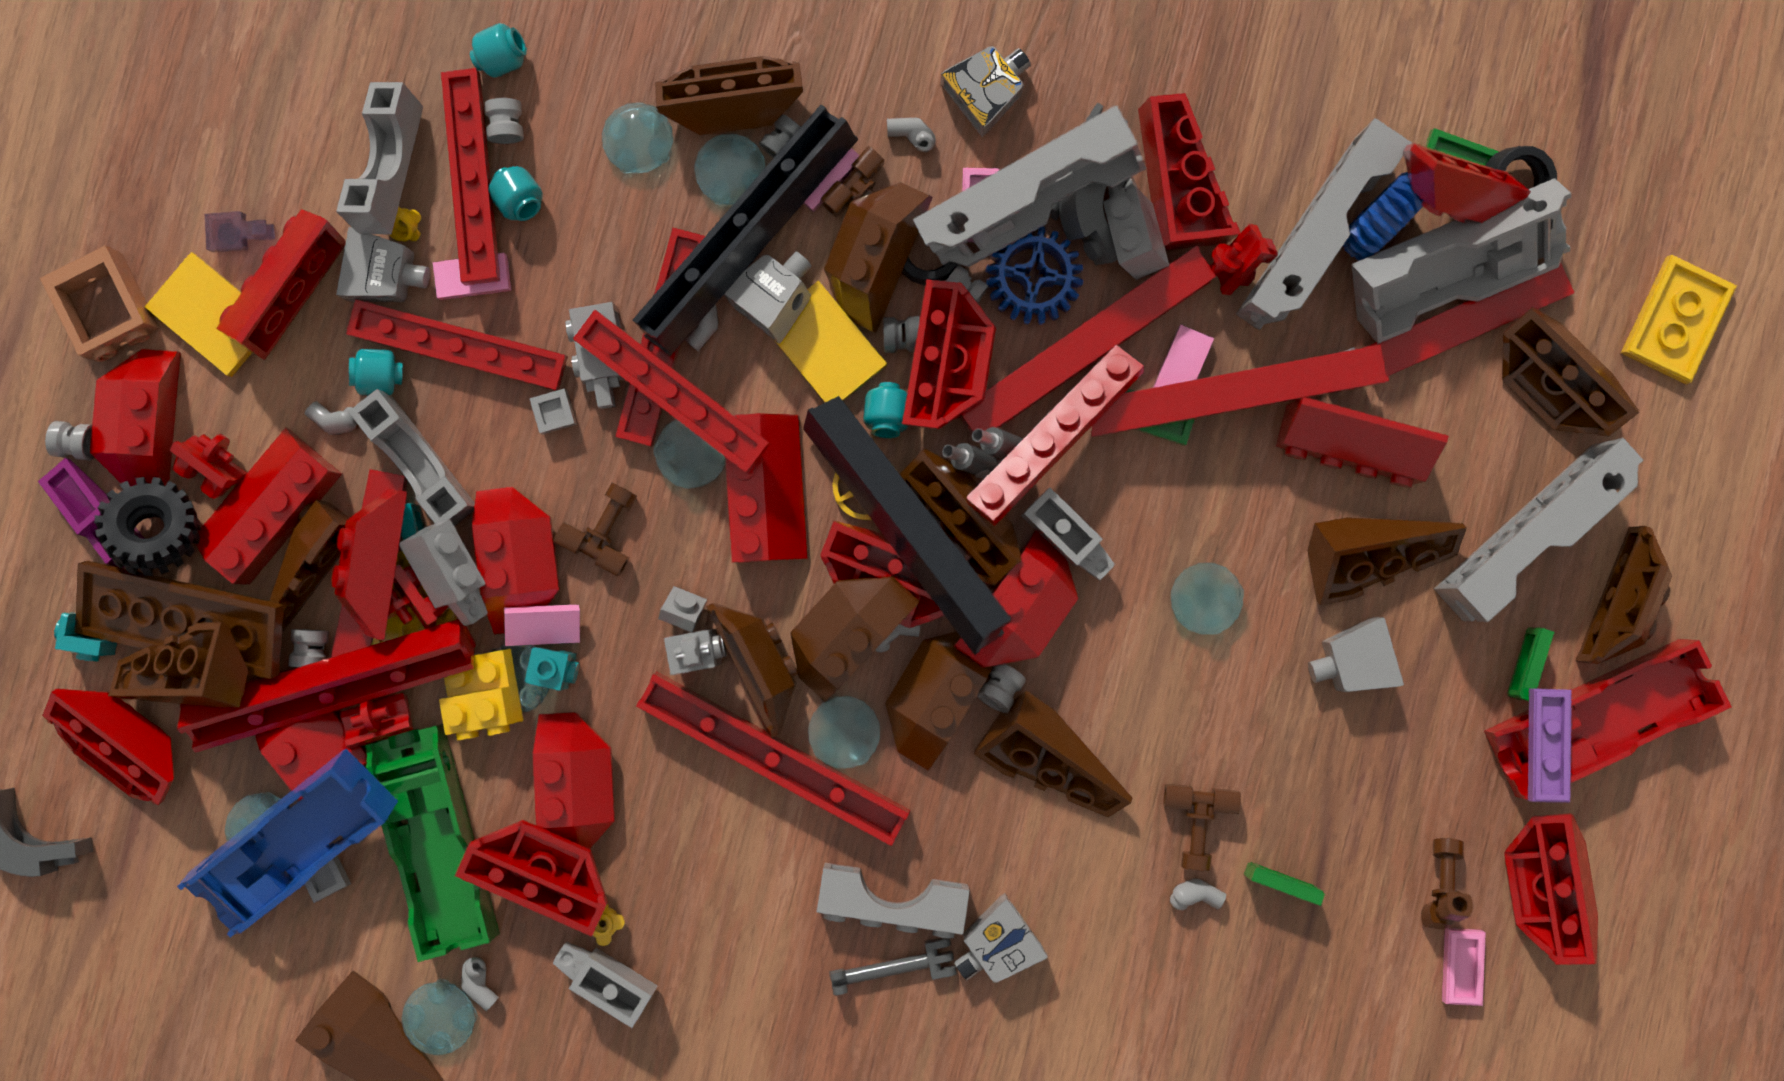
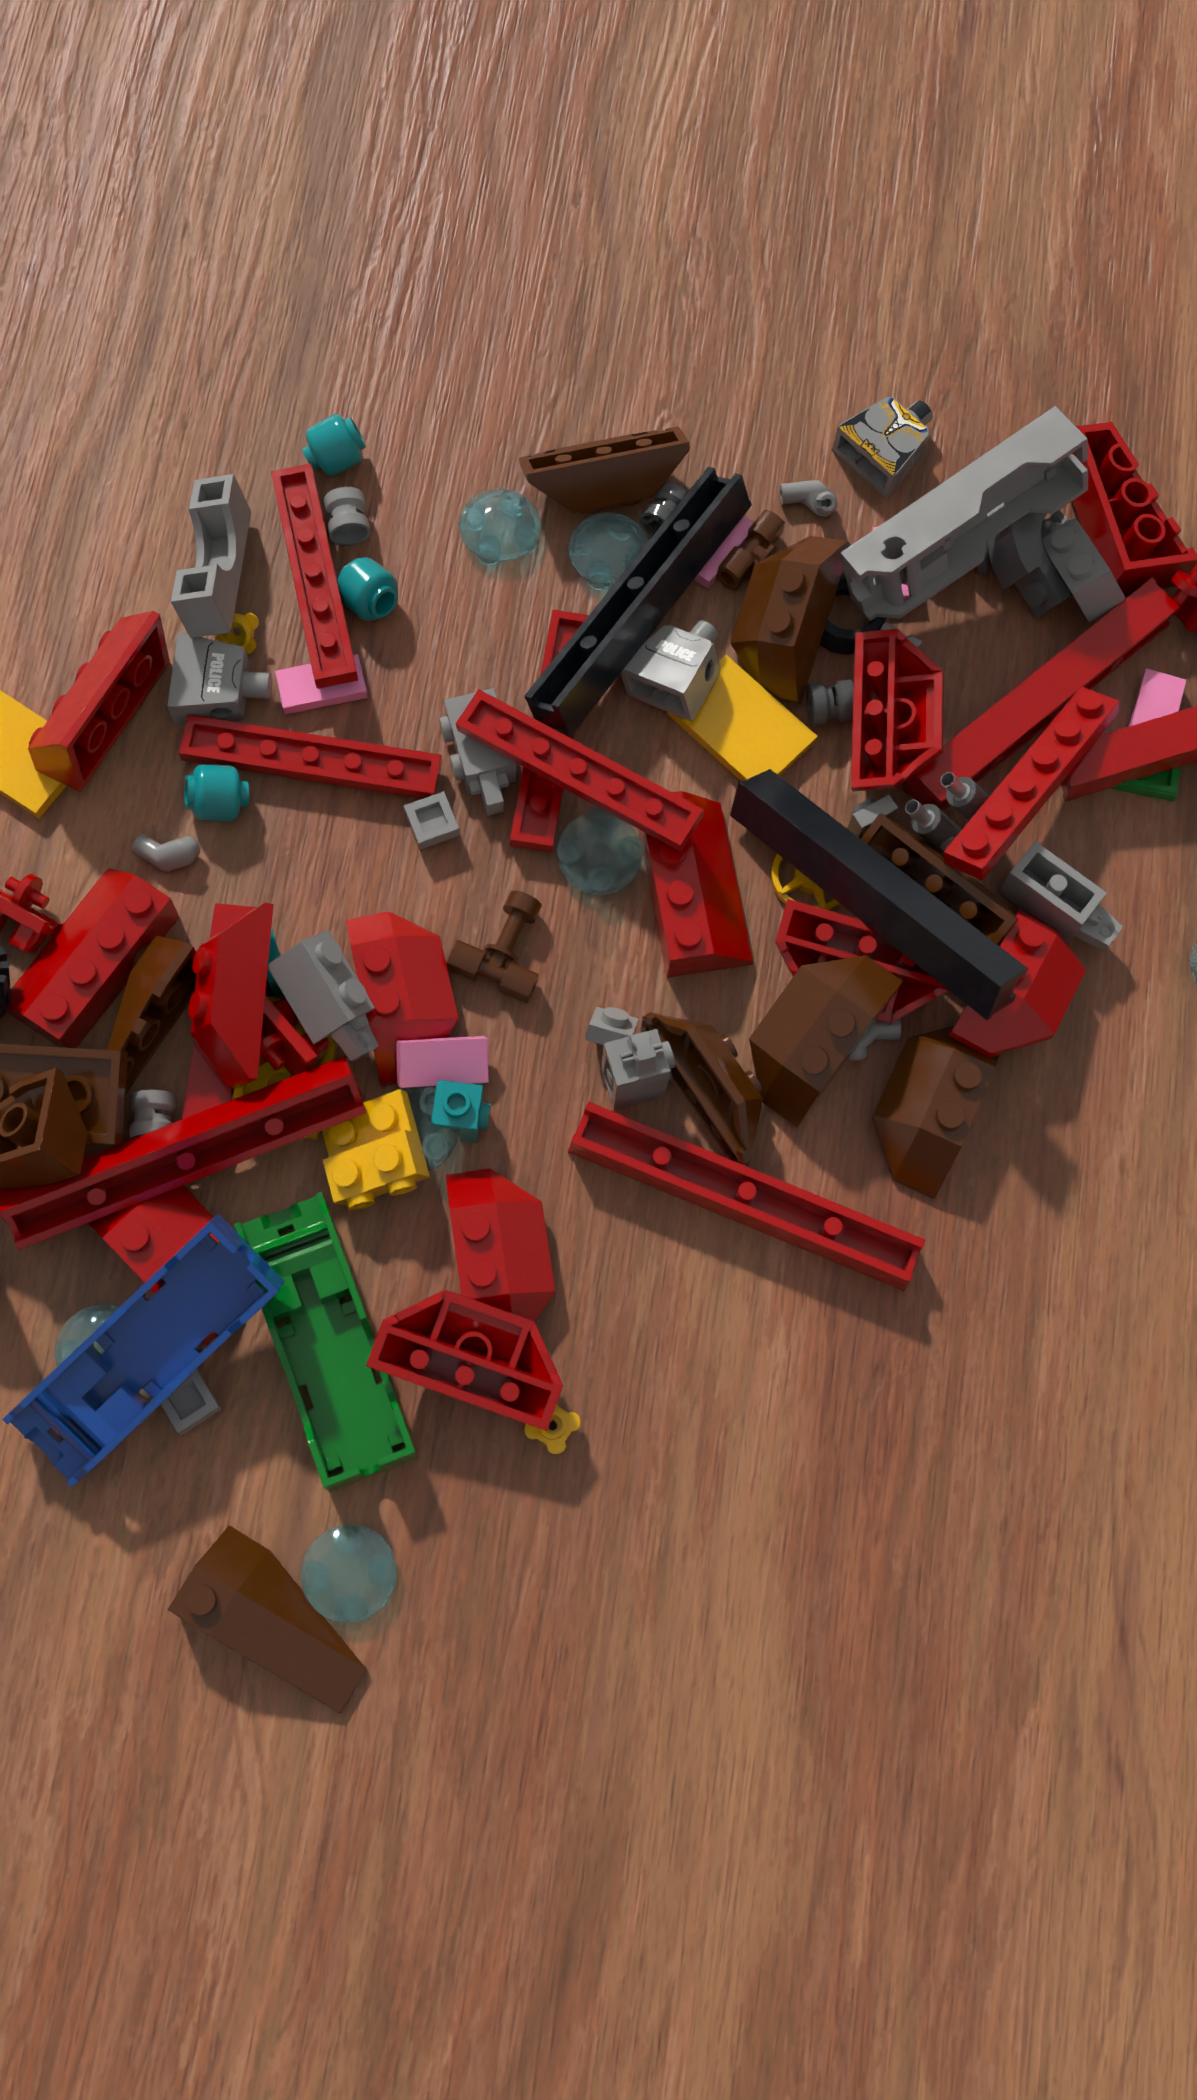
camera: 15 degrees left, 15 degrees down
(230, 231) = (33, 655): plate -> none
(376, 720) = (247, 1192): red hips -> none
(404, 444) = (258, 873): light grey arch -> none
(474, 983) = (392, 1523): light grey arm -> none
(605, 982) = (567, 1494): light grey hinge -> none
(704, 330) = (599, 719): light grey arm -> none
(844, 732) = (827, 1157): clear light blue dish -> none
(885, 410) = (827, 782): teal head -> none
(919, 441) = (867, 812): none -> light grey plate
(931, 959) = (867, 1466): dark grey hinge -> none
(939, 907) = (859, 1354): light grey arch -> none
(999, 943) = (1060, 1396): light grey torso -> none
(1001, 687) = (1011, 1084): light grey wheel -> none
(1045, 749) = (1074, 1156): reddish brown wedge -> none
(1050, 277) = (990, 615): blue gear -> none

